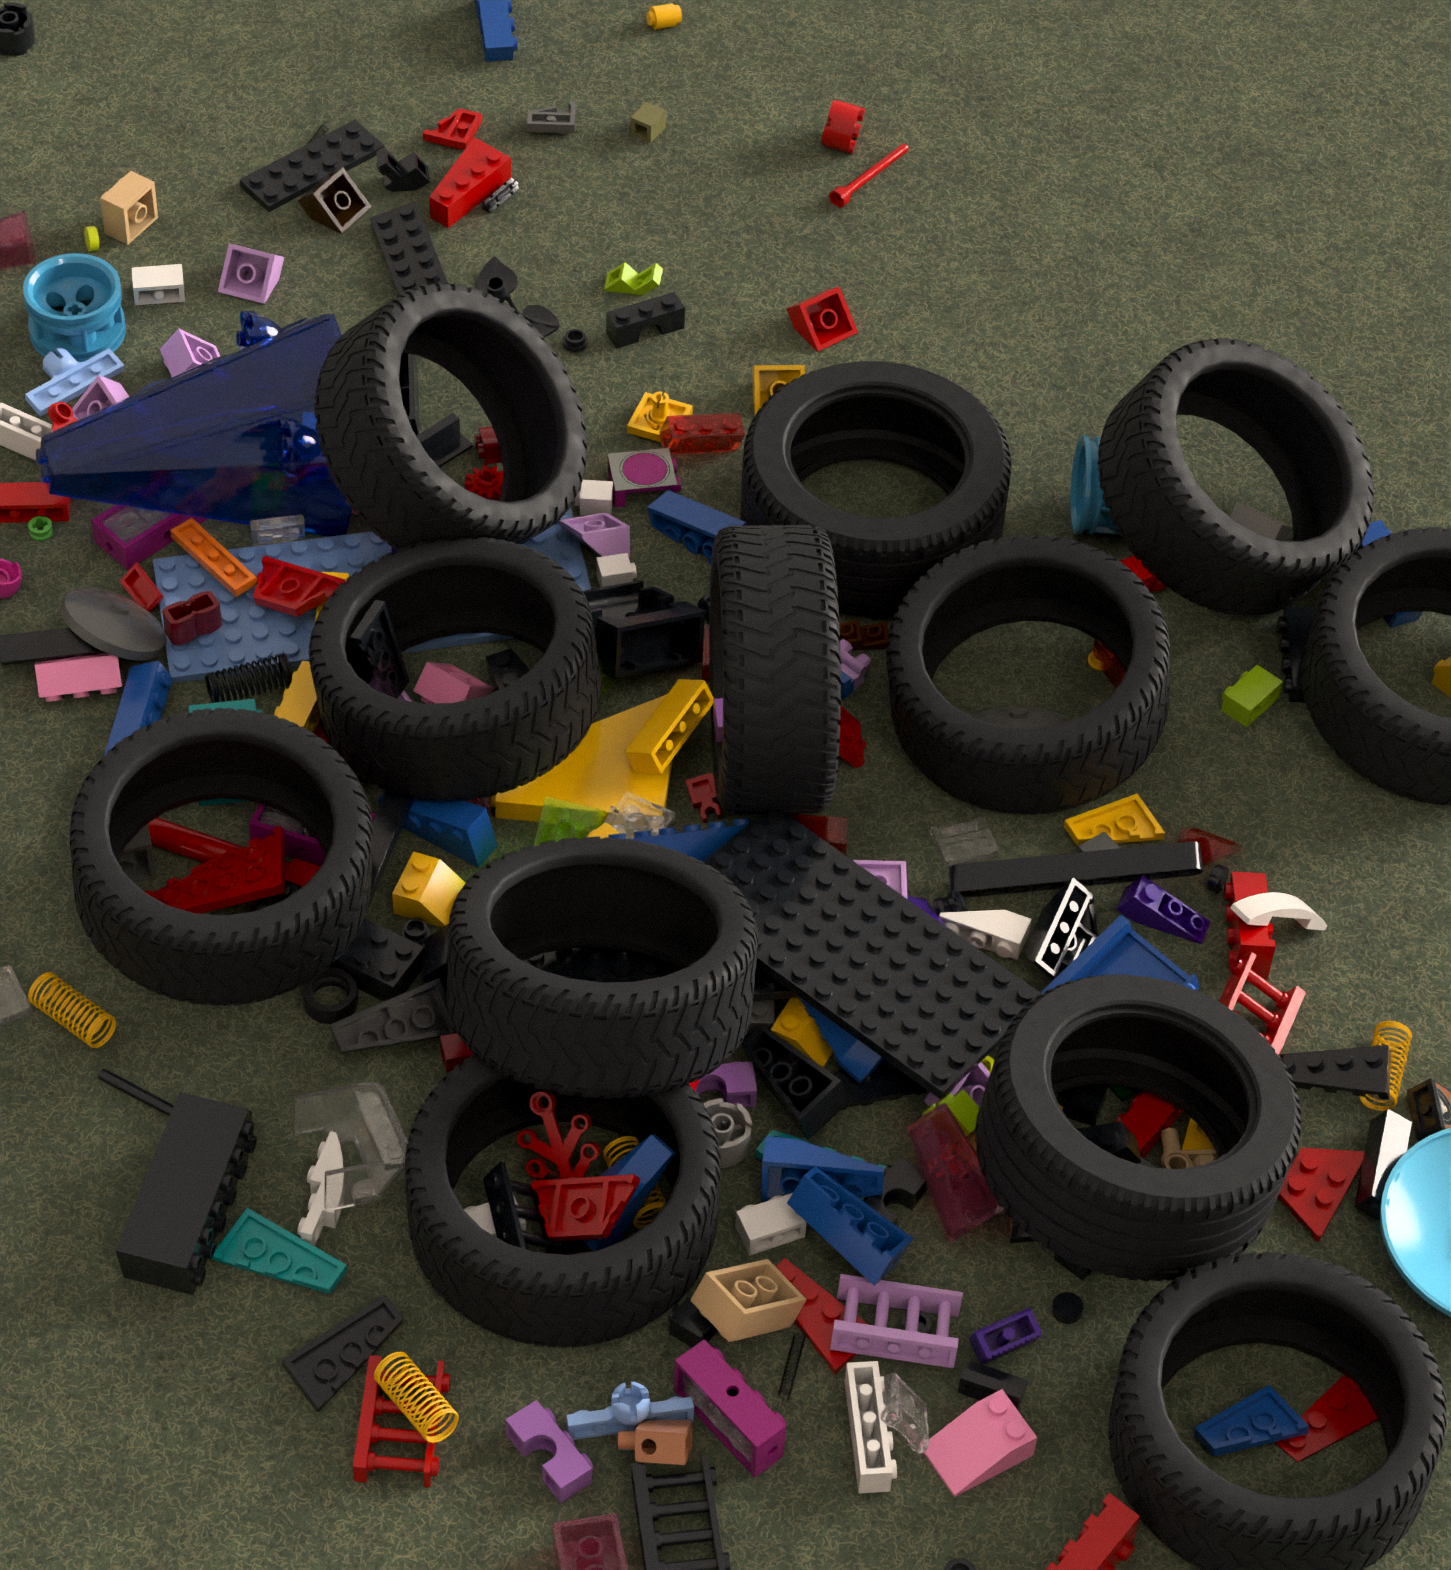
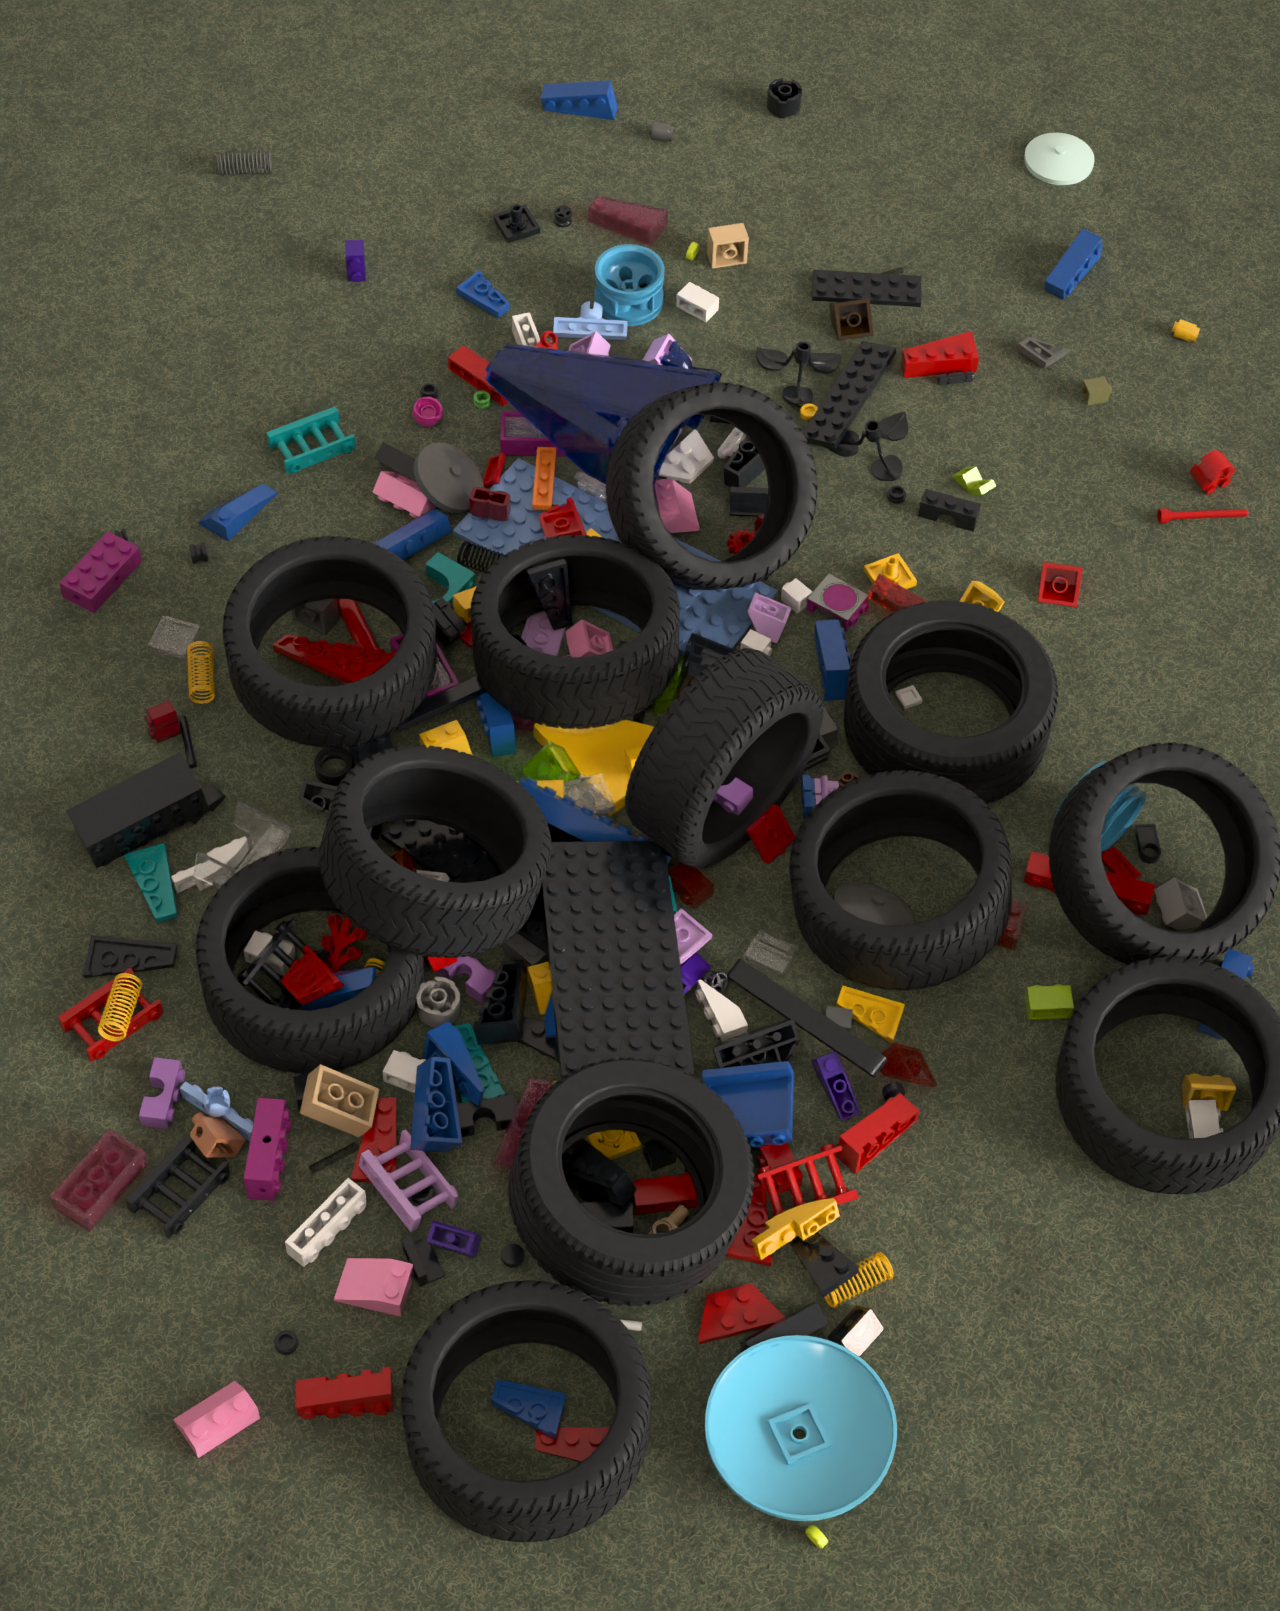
camera: 45 degrees right, 5 degrees up
(97, 1087) = (162, 722): none -> dark red brick
(250, 273) = (755, 328): lavender slope -> none
(339, 263) = (775, 359): none -> black plant
(404, 174) = (909, 327): black brick -> none
(455, 130) = (975, 320): red wing -> none
(905, 1413) = (357, 1229): clear plate -> none
(1261, 907) = (895, 1133): white slope -> none
(1295, 1041) = (795, 1222): none -> yellow slope

